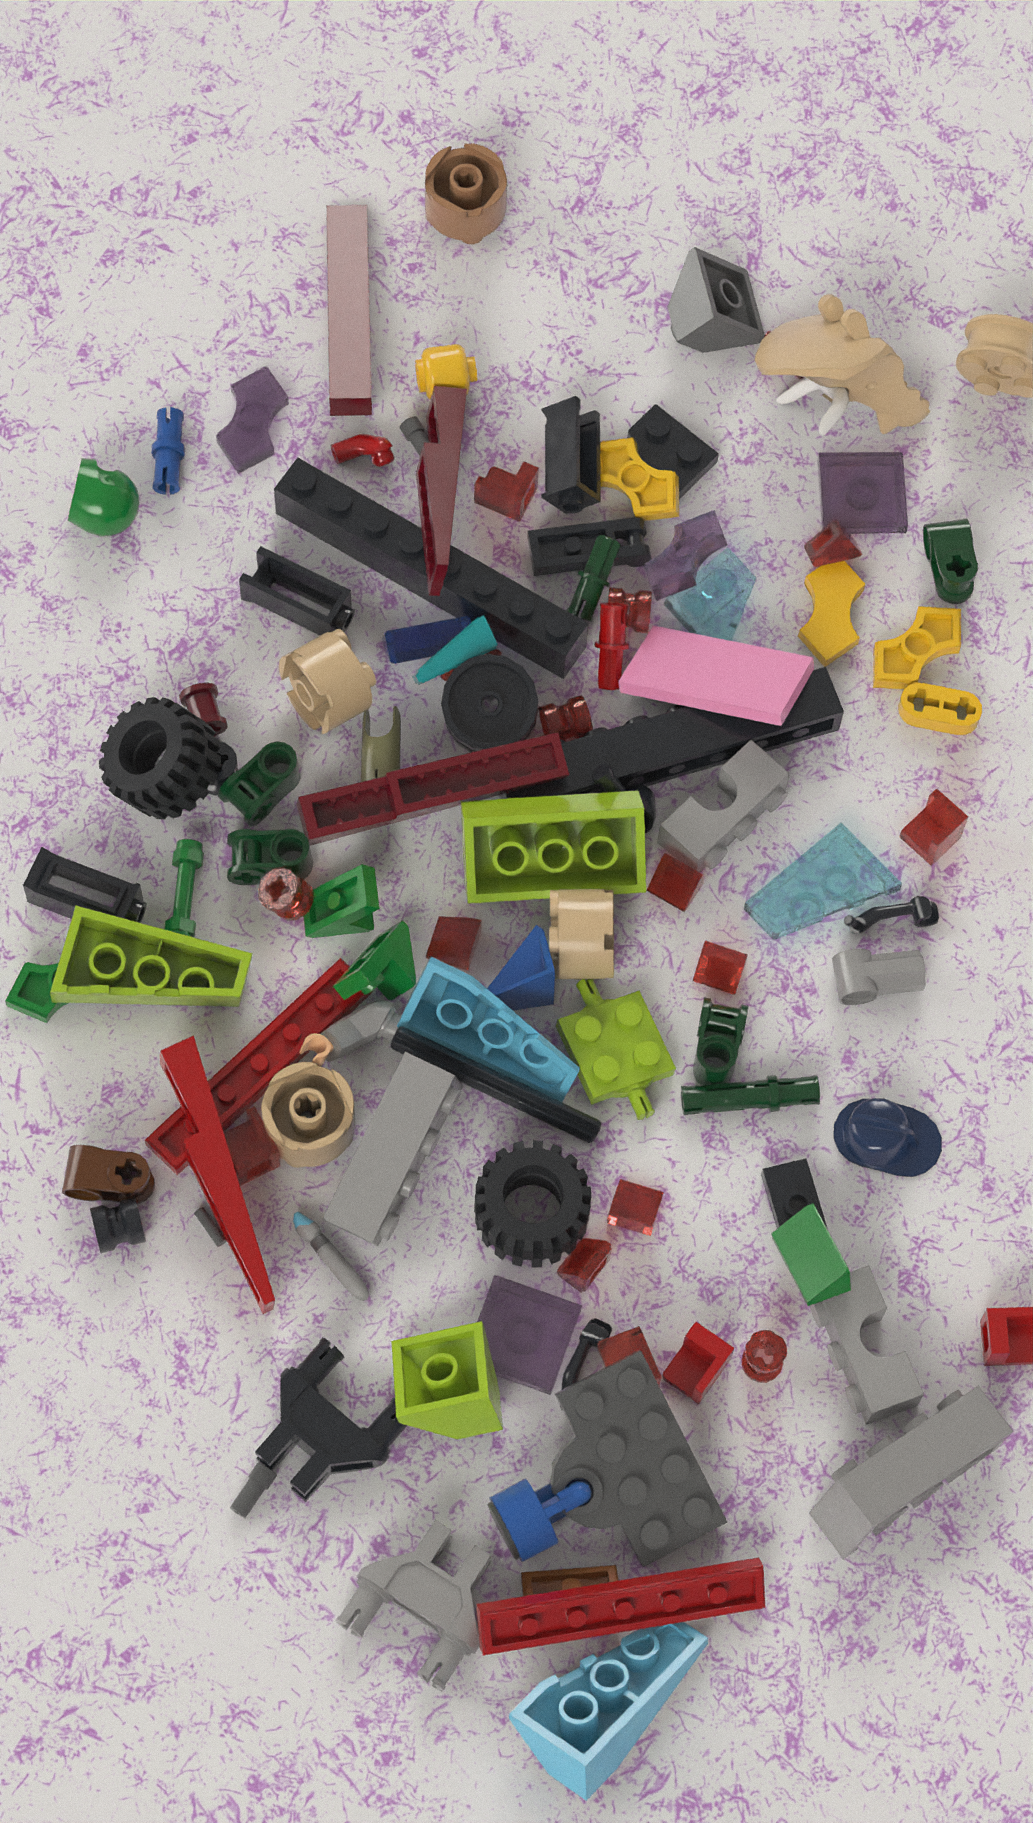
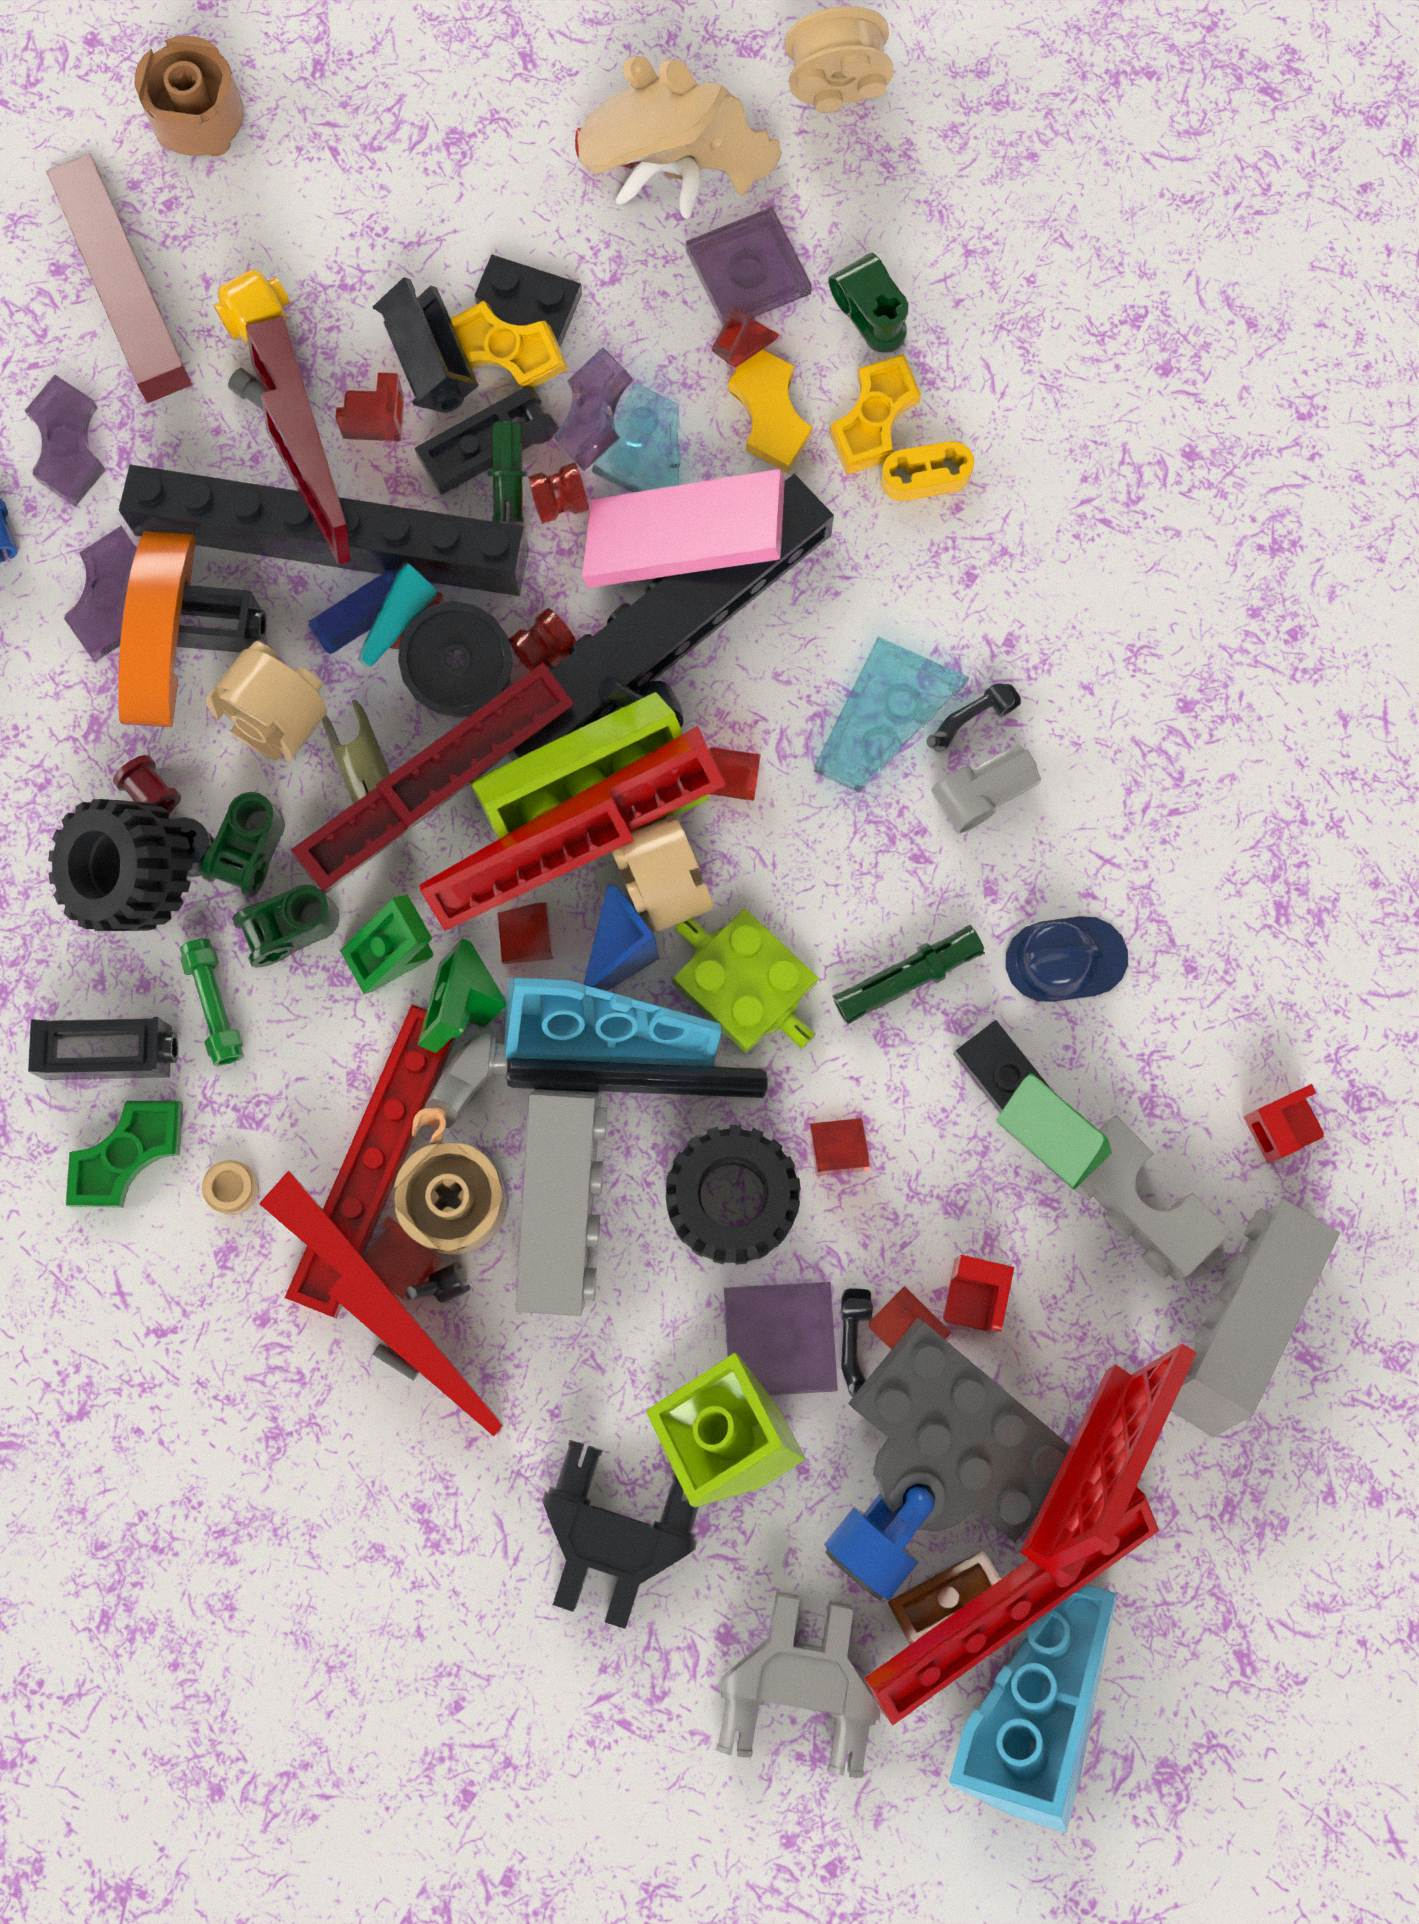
camera: 20 degrees left, 10 degrees up
(99, 1175) = (254, 1357): reddish brown piece -> none
(117, 1225) = (295, 1408): black wheel -> none
(137, 1040) = (230, 1187): none -> tan tile
(141, 964) = (185, 1110): lime wedge -> none
(231, 555) = (100, 609): none -> clear purple tile
(259, 1480) = (568, 1626): dark grey piece -> none
(261, 589) = (151, 628): none -> orange slope
(273, 1180) = (442, 1284): none -> black hand
(289, 905) = (332, 968): clear red wheel -> none
(311, 1232) = (508, 1323): light grey piece -> none
(361, 445) = (198, 421): red arm -> none
(528, 869) = (575, 830): none -> red slope
(585, 1263) = (812, 1233): clear red slope -> none
(611, 644) = (557, 538): red axle -> none
(701, 835) = (768, 632): light grey arch -> none
(714, 305) = (507, 122): dark grey slope -> none
(719, 1036) = (849, 921): dark green piece -> none
(720, 967) = (818, 848): clear red slope -> none
(735, 1524) = (1105, 1464): none -> red fence
(773, 1346) = (1060, 1261): clear red bush -> none
(935, 828) = (977, 602): clear red panel -> none

